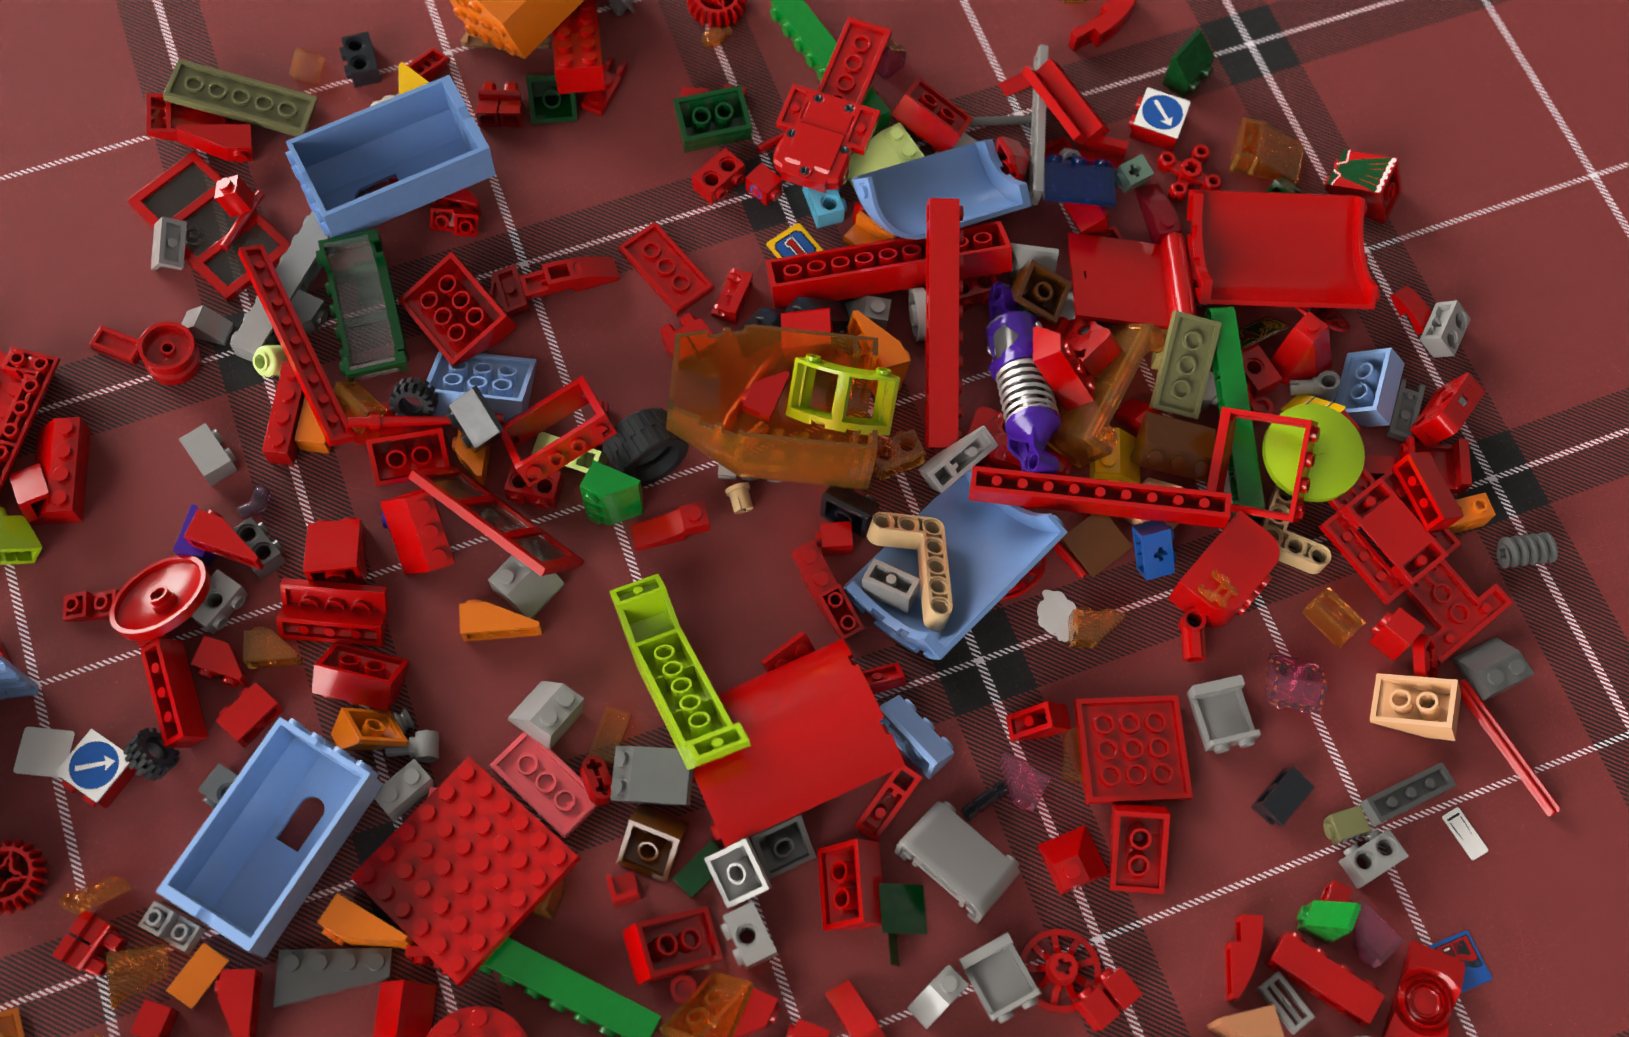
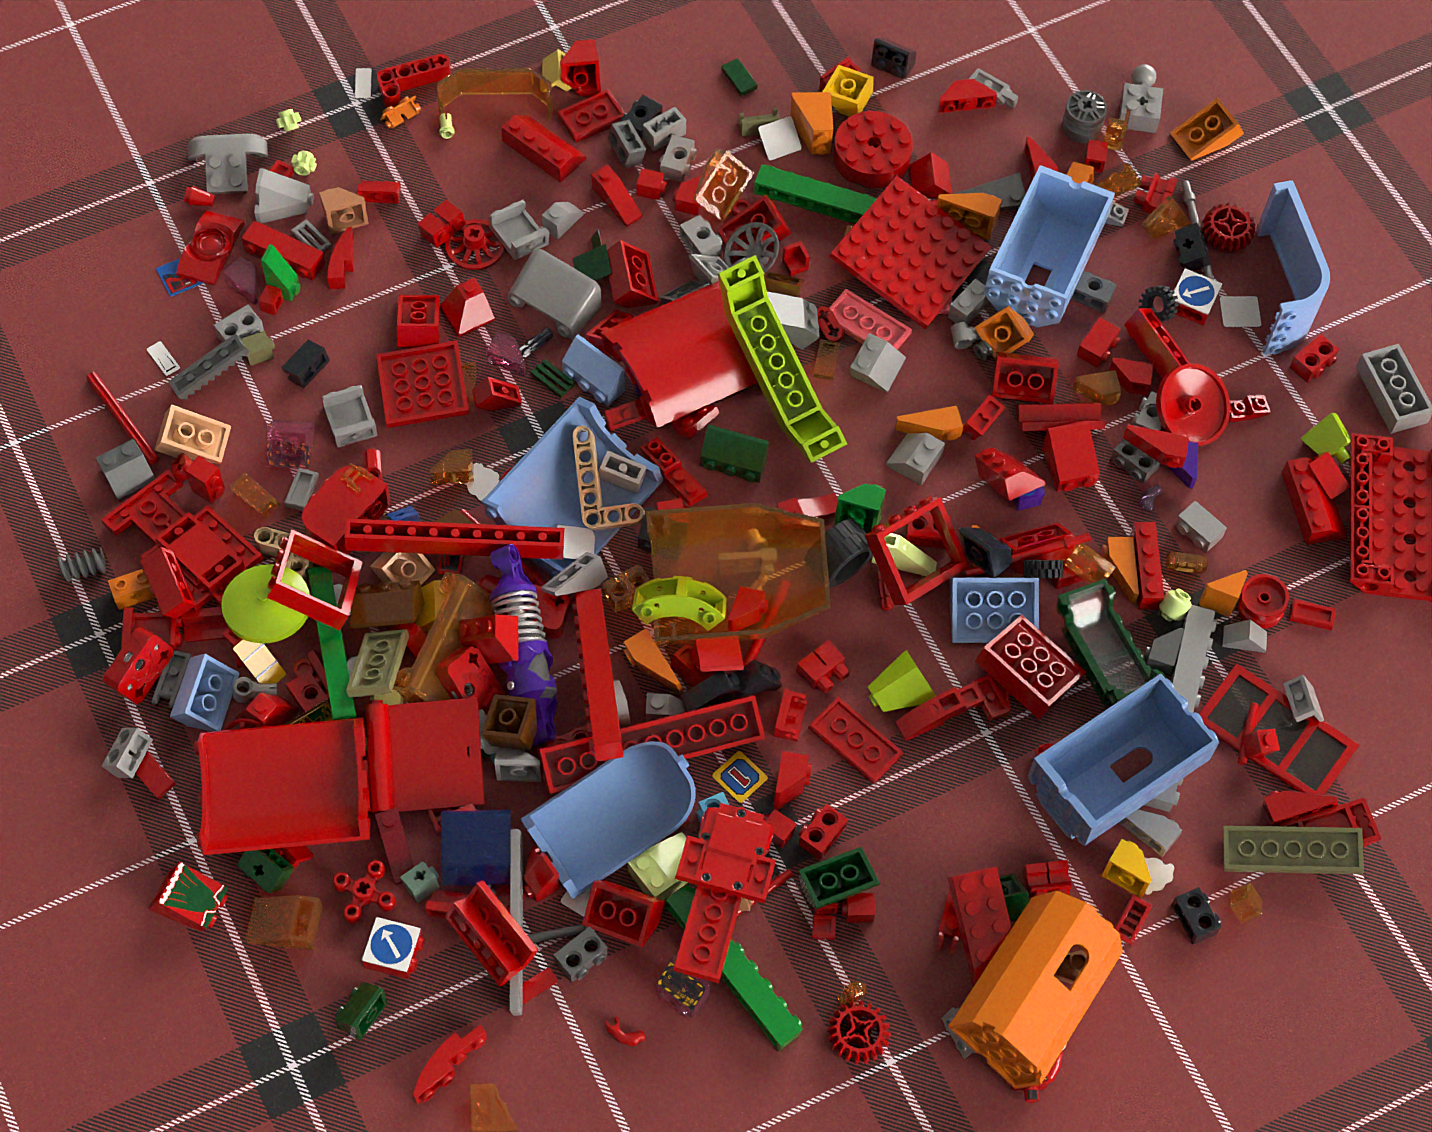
camera: 175 degrees right, 5 degrees down
(46, 935) = (1189, 200): none -> light grey bar
(63, 856) = (1192, 247): none -> black brick
(208, 363) = (1223, 593): none -> orange slope
(240, 414) = (1186, 562): none -> clear orange beam
(296, 345) = (1159, 607): red plate -> none
(431, 622) = (983, 417): none -> red hinge
(497, 520) = (970, 488): red door -> none
(604, 309) = (900, 685): none -> lime slope
(679, 896) = (754, 248): none -> flat silver wheel
(744, 220) = (792, 777): none -> red slope
(750, 601) = (734, 454): none -> dark green slope
(937, 23) = (629, 1039): none -> red piece
(955, 513) = (577, 541): none -> white sticker
(973, 739) = (541, 368): none -> dark green tile
(977, 92) = (576, 951): none -> dark grey brick
(1276, 626) = (301, 489): none -> light grey tile

